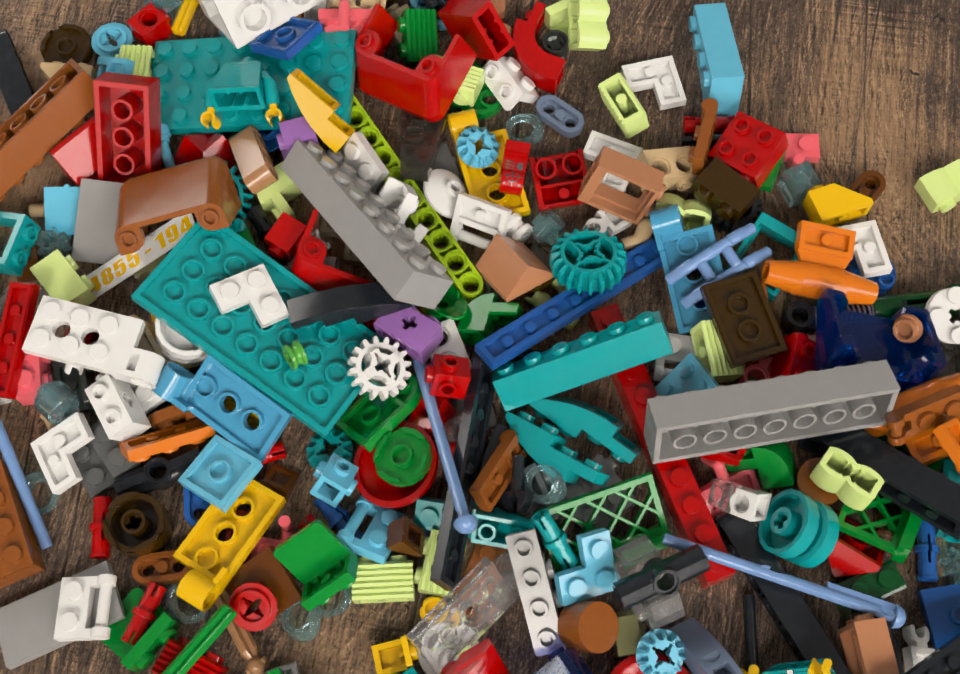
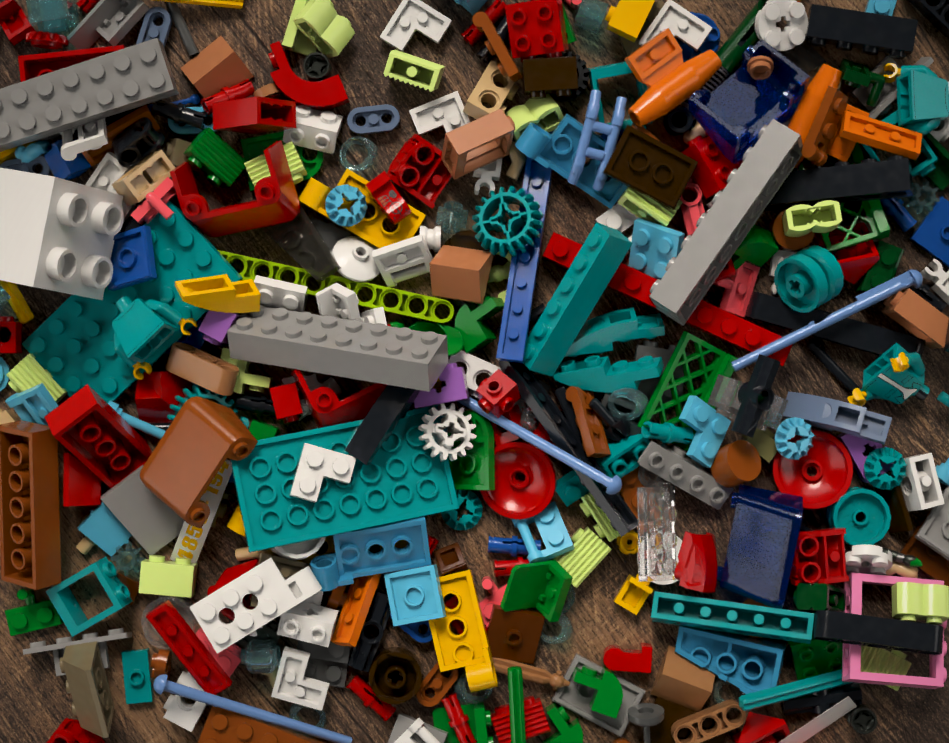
camera: 45 degrees left, 20 degrees up
(254, 620) = (530, 656): red gear -> none
(294, 355) = (389, 480): bright green bush -> none
(334, 480) = (490, 528): medium azure brick -> none
(403, 457) = (519, 472): green tile -> none
(405, 537) = (571, 519): reddish brown slope -> none
(739, 500) = (755, 295): white leg -> none

